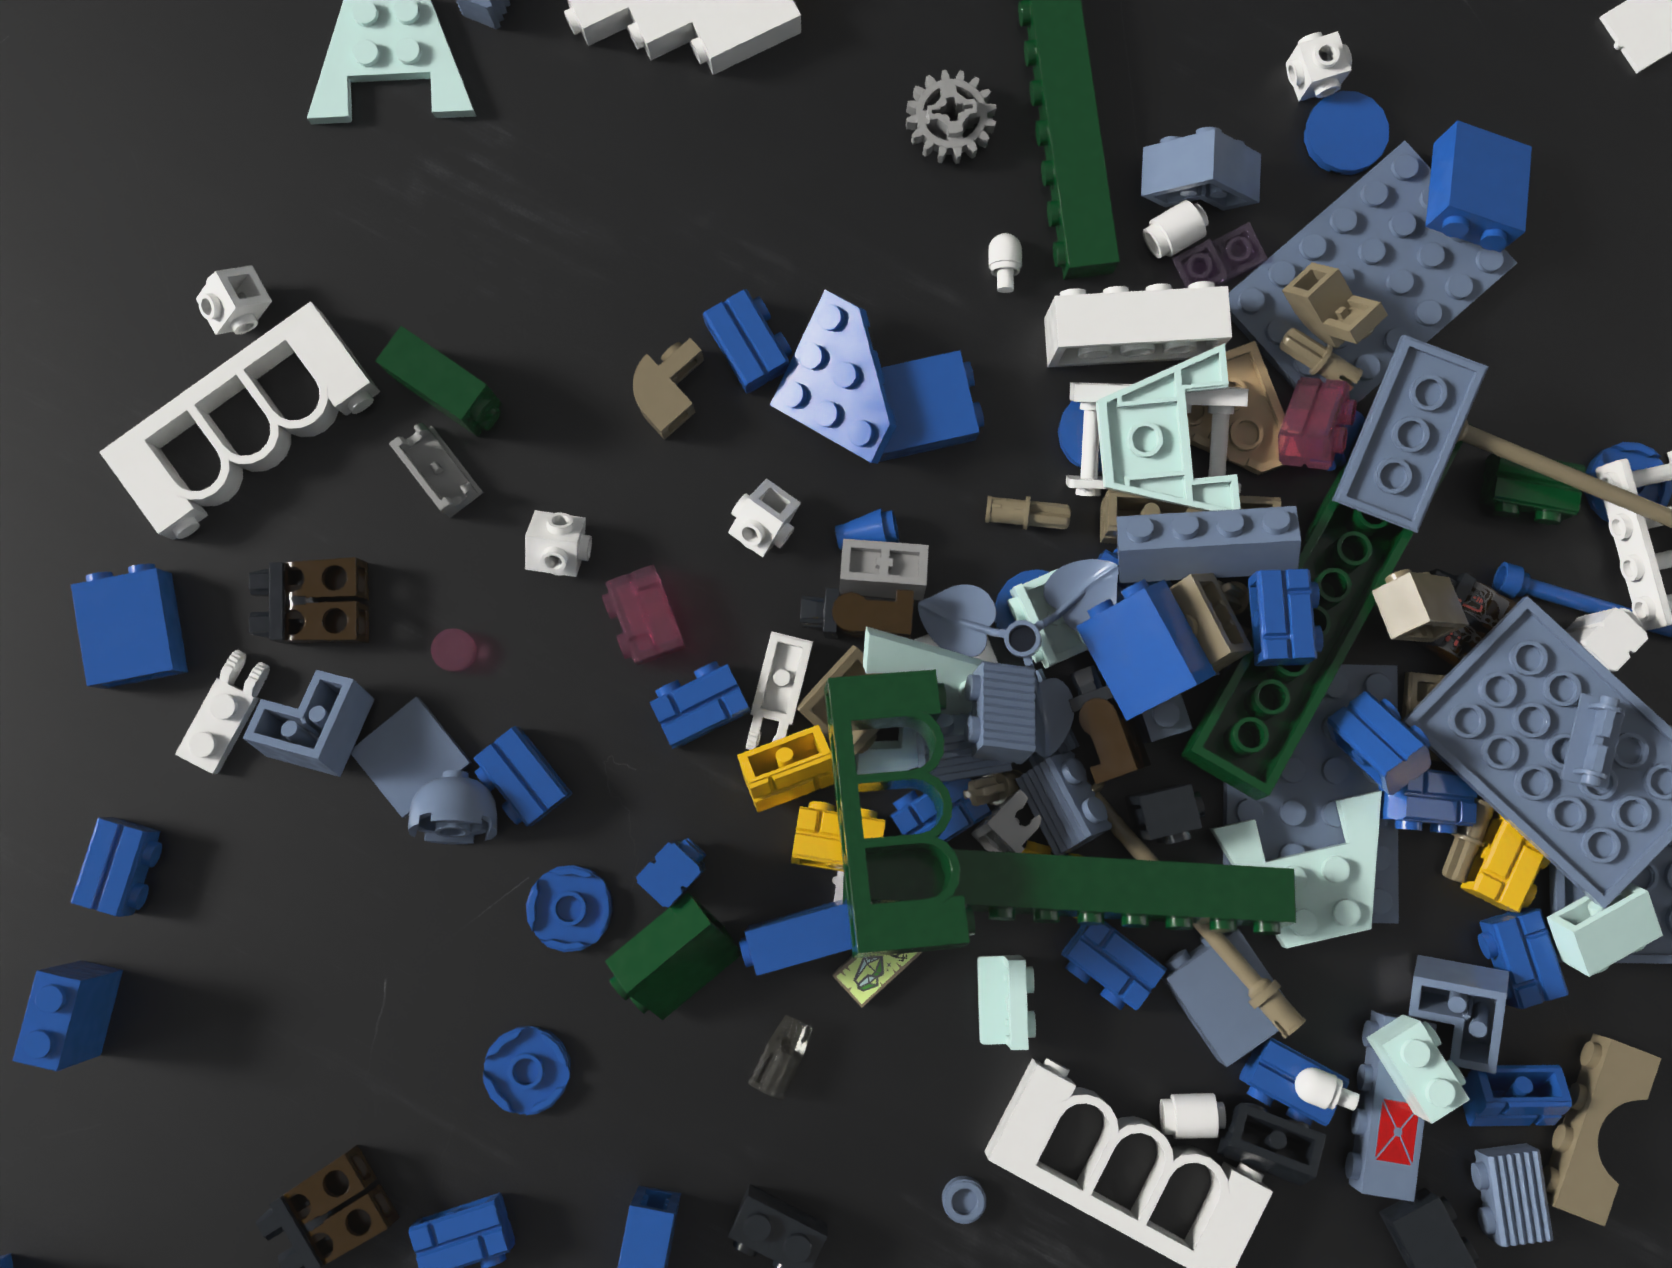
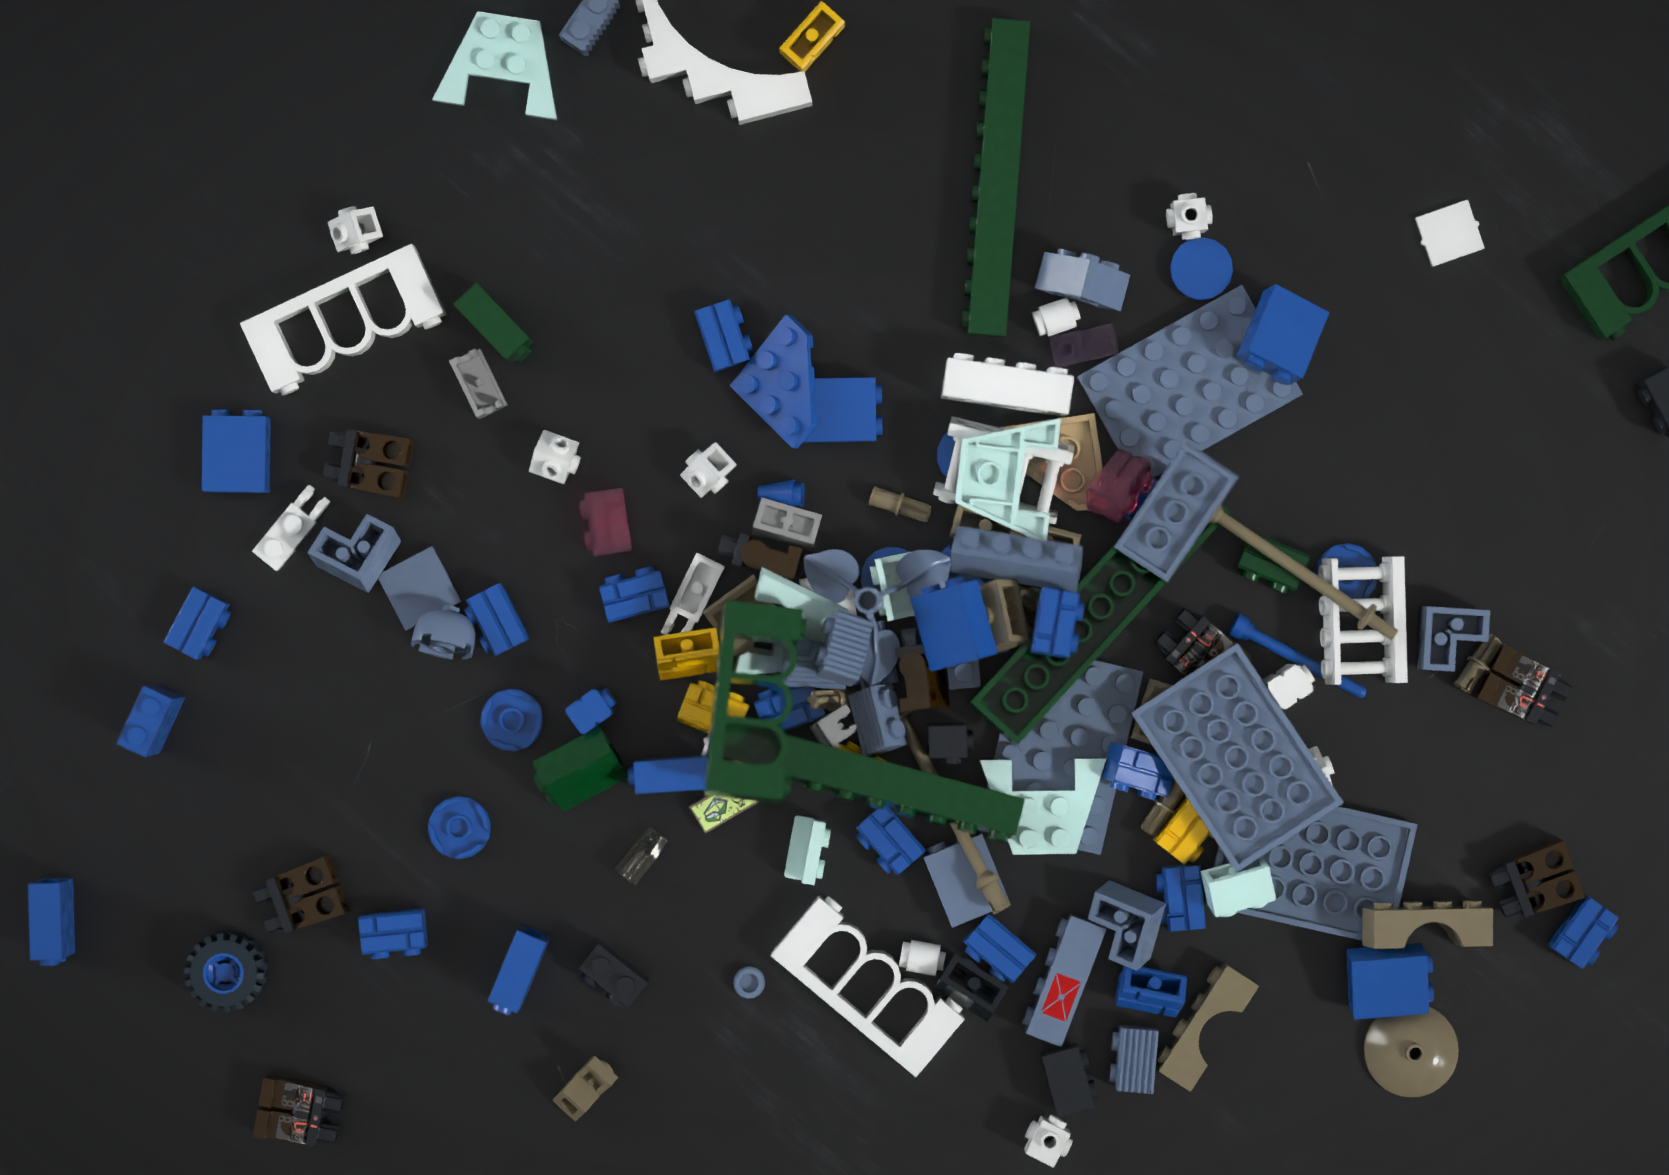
camera: 15 degrees right, 5 degrees up
(453, 650) = (464, 517): clear pink tile -> none
(657, 387) = (648, 358): dark tan brick -> none
(966, 106) = (892, 197): light grey gear -> none
(1005, 260) = (925, 313): white cylinder -> none
(1319, 358) = (1135, 438): dark tan axle -> none
(1324, 1090) = (1014, 956): white cylinder -> none
(1329, 307) = (1150, 402): dark tan brick -> none
(1380, 742) = (1108, 723): blue brick -> none
(1418, 1068) = (1081, 954): light aqua brick -> none
(1419, 606) = (1157, 634): dark tan brick -> none
(1593, 741) = (1255, 755): sand blue hinge -> none

